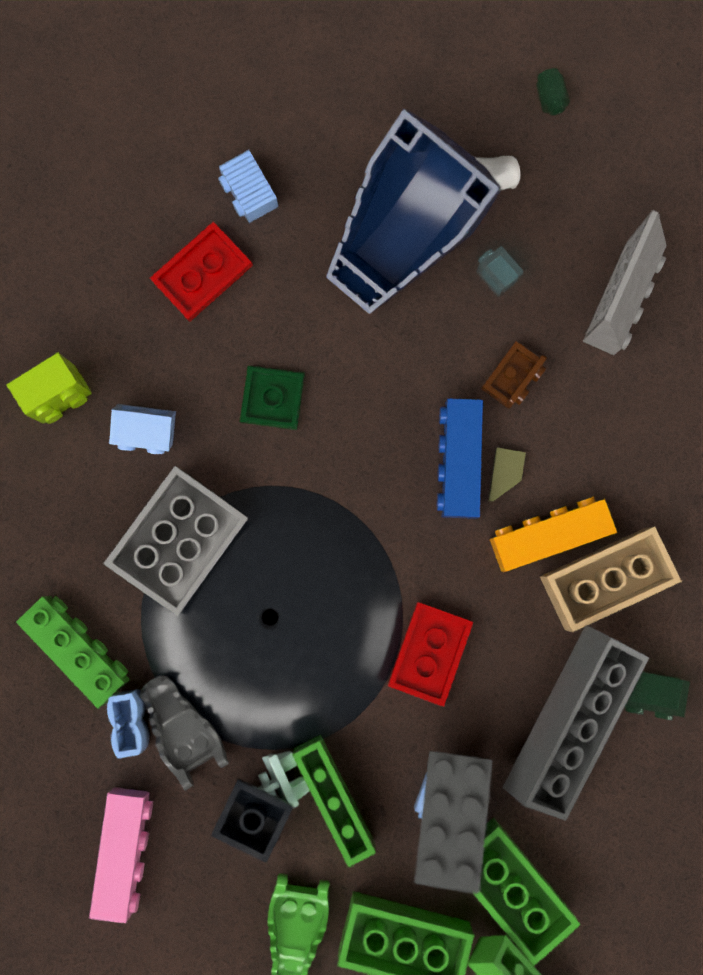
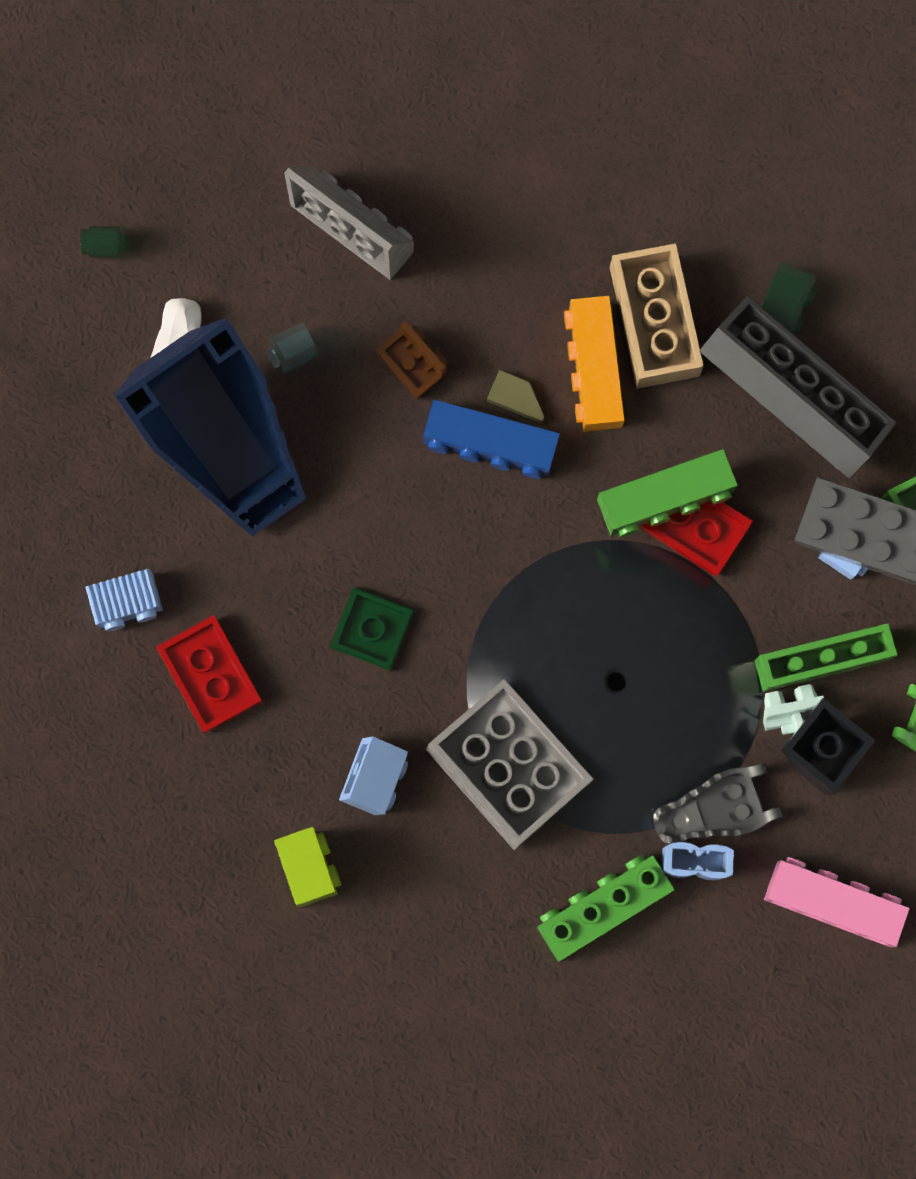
camera: 80 degrees left, 5 degrees down
(448, 625) = (667, 493): none -> bright green brick

